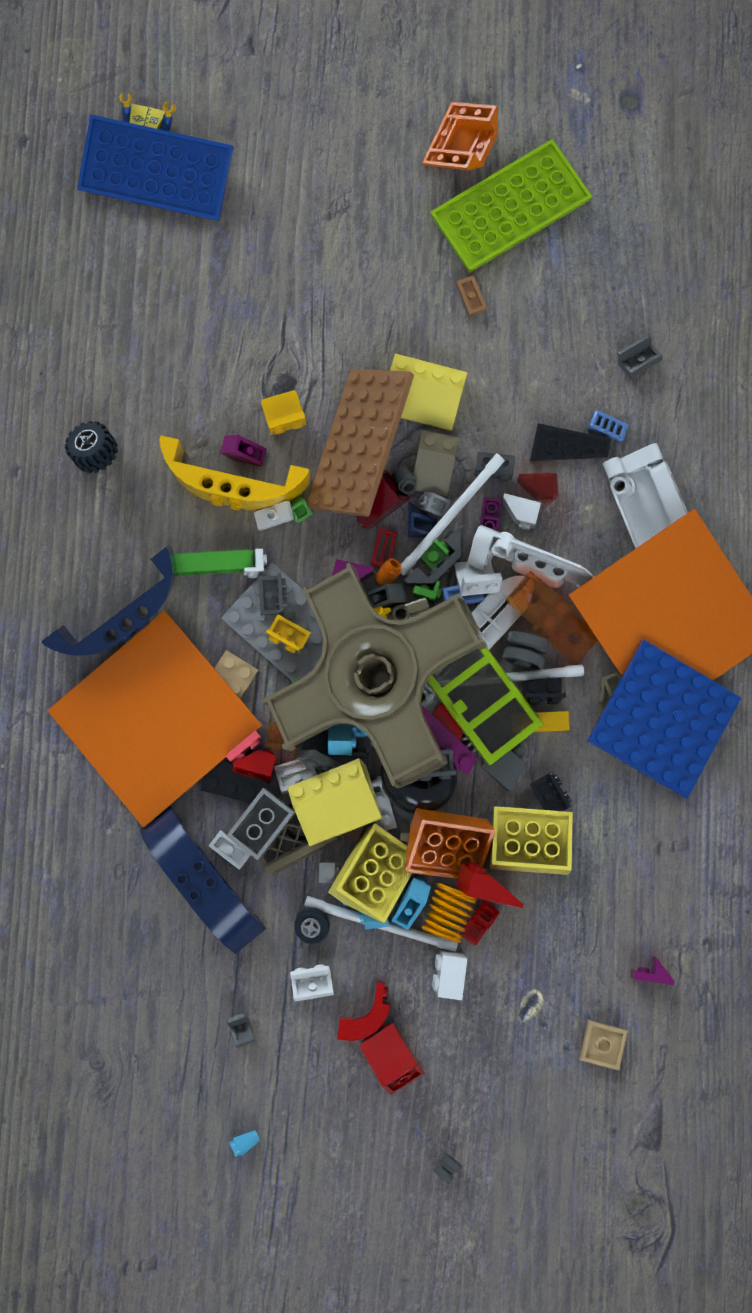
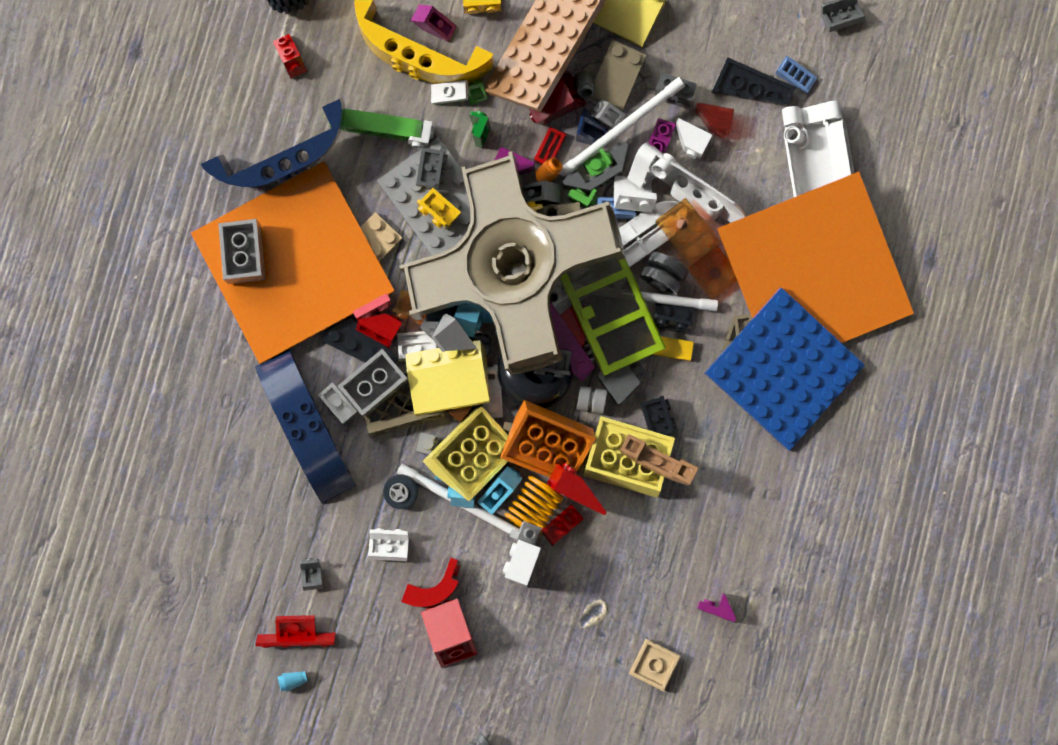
camera: 10 degrees right, 0 degrees up
(101, 719) = (241, 251): none -> light grey brick
(108, 513) = (290, 56): none -> red bracket
(236, 1093) = (295, 632): none -> red bracket
(312, 544) = (481, 127): none -> green bracket
(329, 761) = (451, 336): none -> light grey slope
(449, 944) = (526, 533): none -> light grey bracket
(481, 791) = (591, 400): none -> light grey wheel
(563, 841) = (658, 462): none -> medium nougat slope

